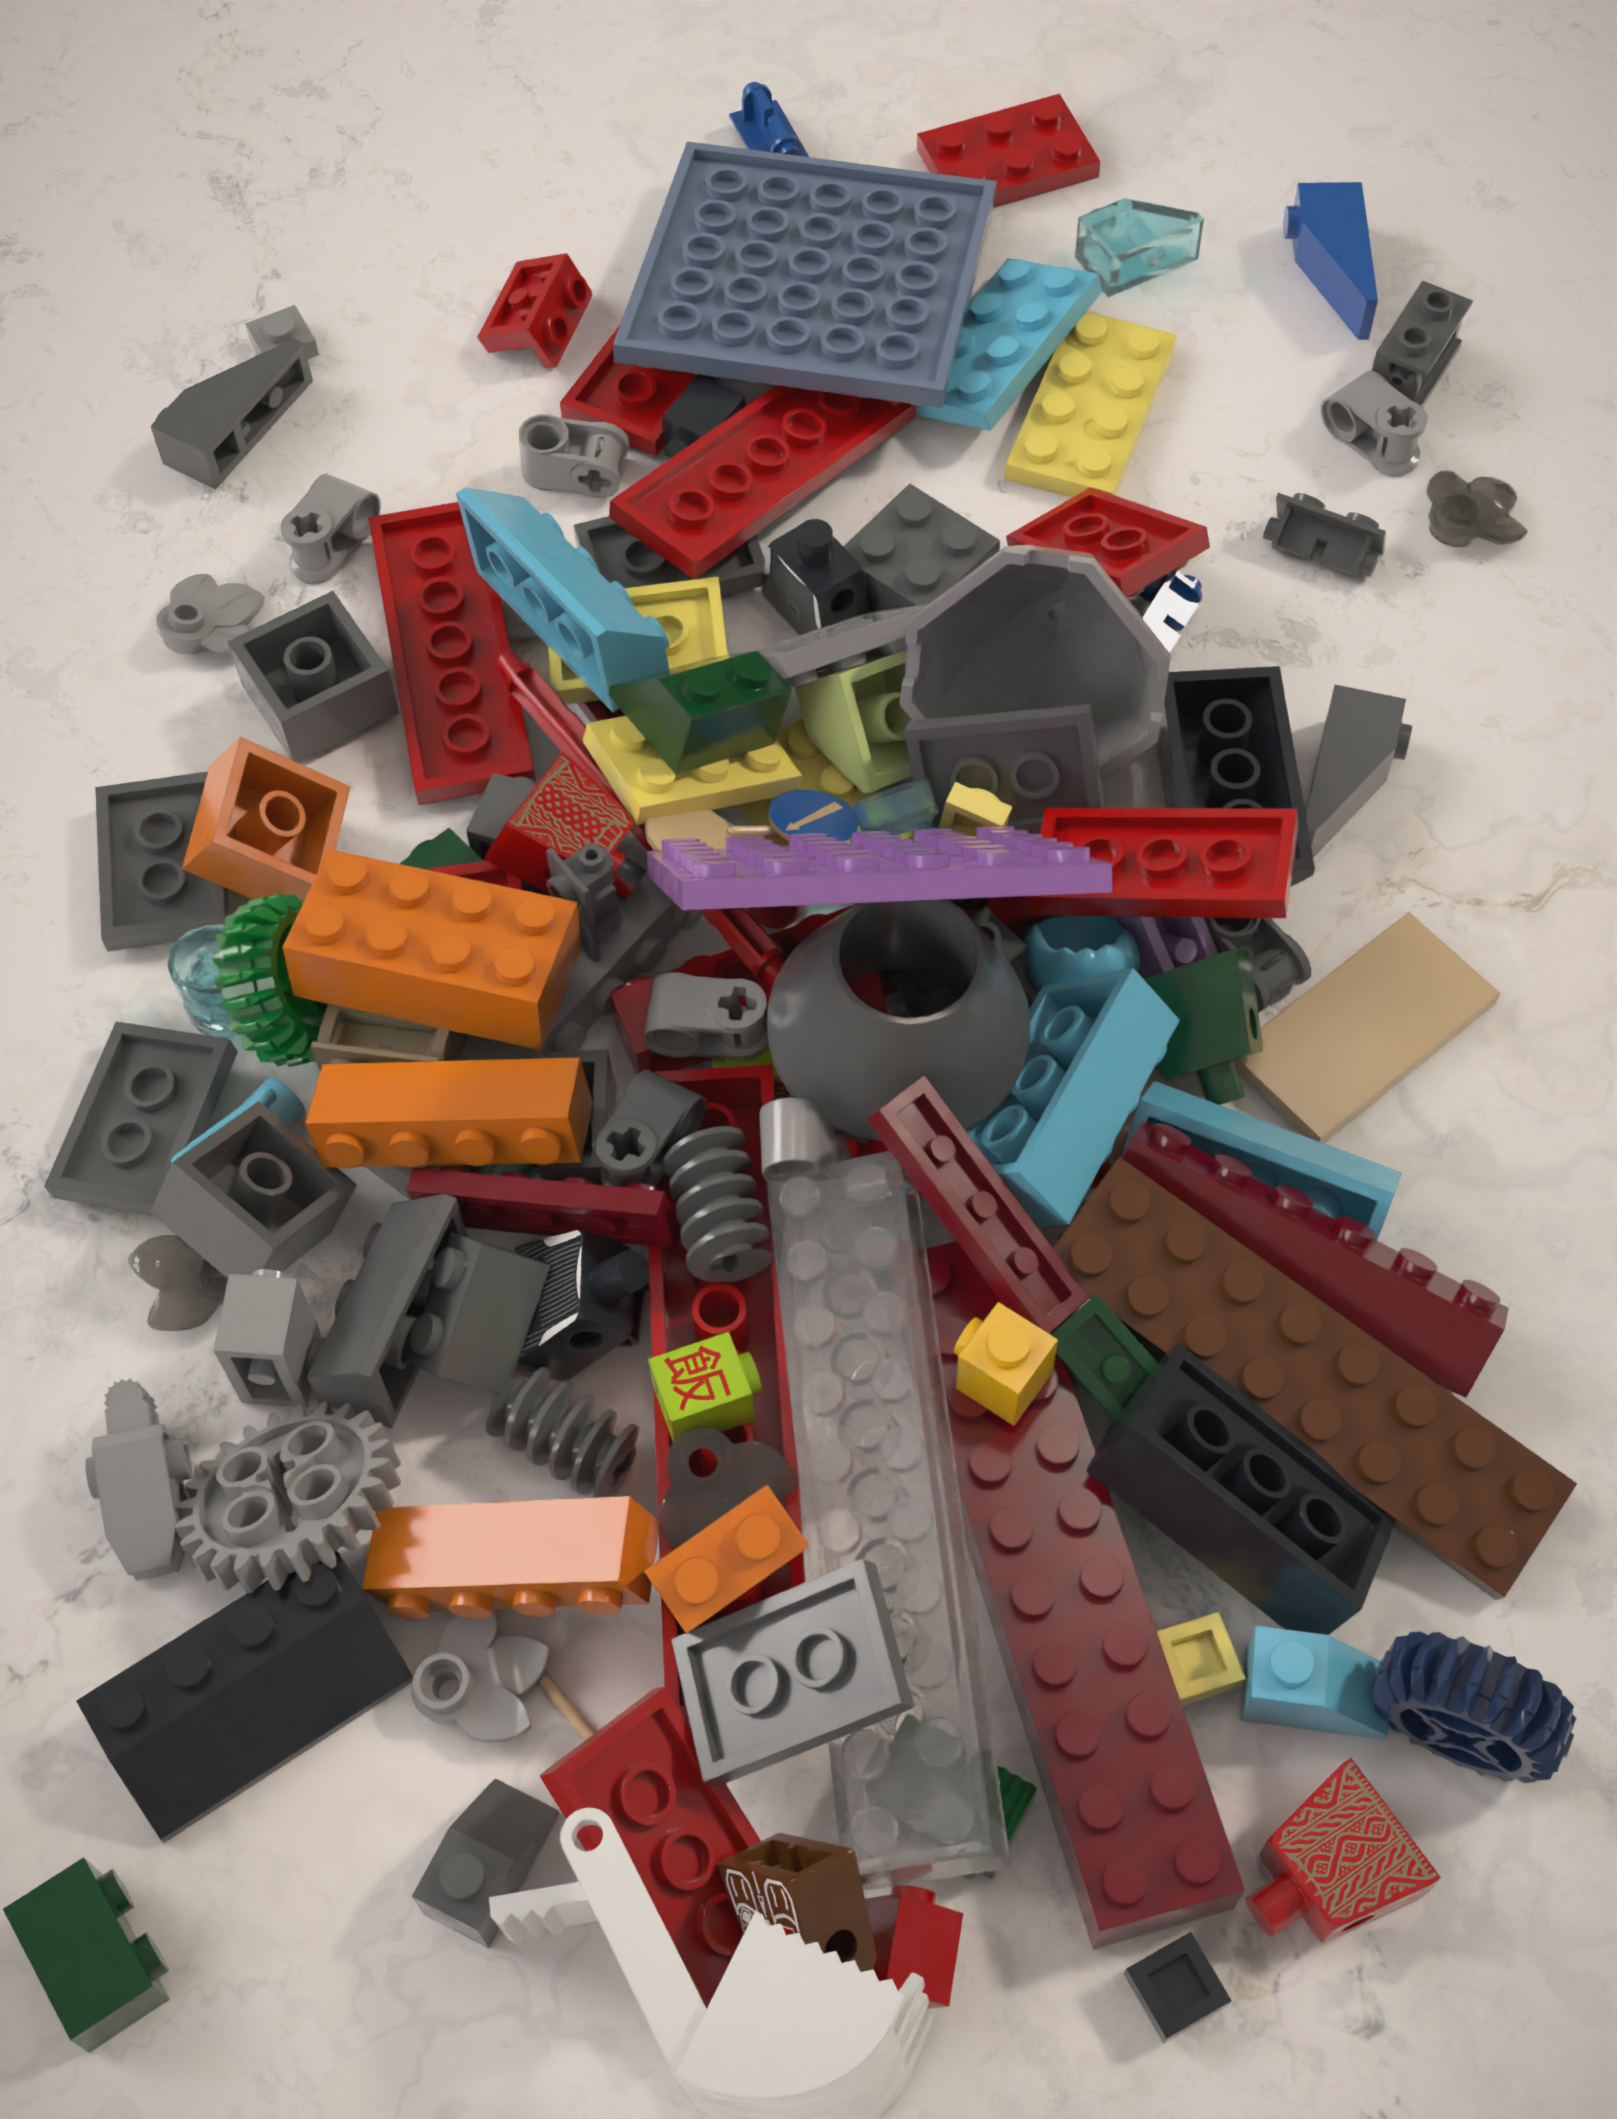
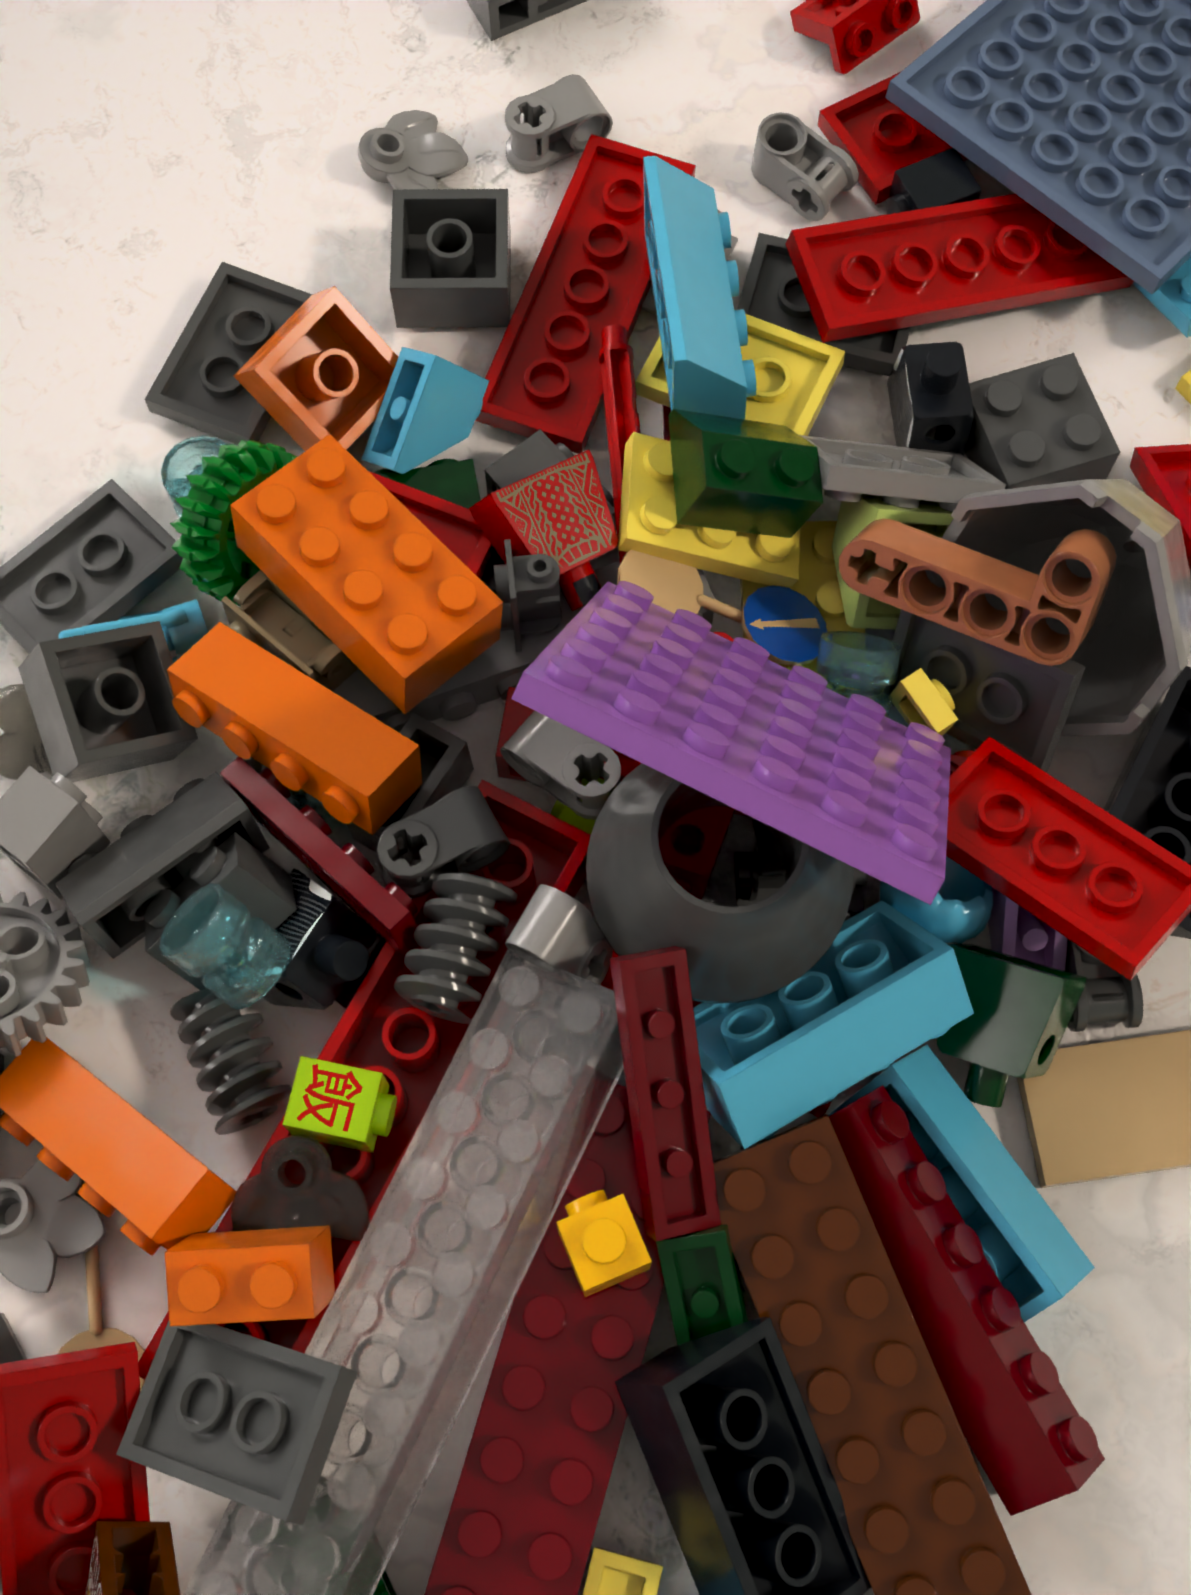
camera: 30 degrees right, 10 degrees up
(379, 802) = (423, 411): none -> medium azure slope
(513, 1320) = (224, 945): none -> clear light blue wheel
(955, 679) = (882, 550): none -> nougat beam

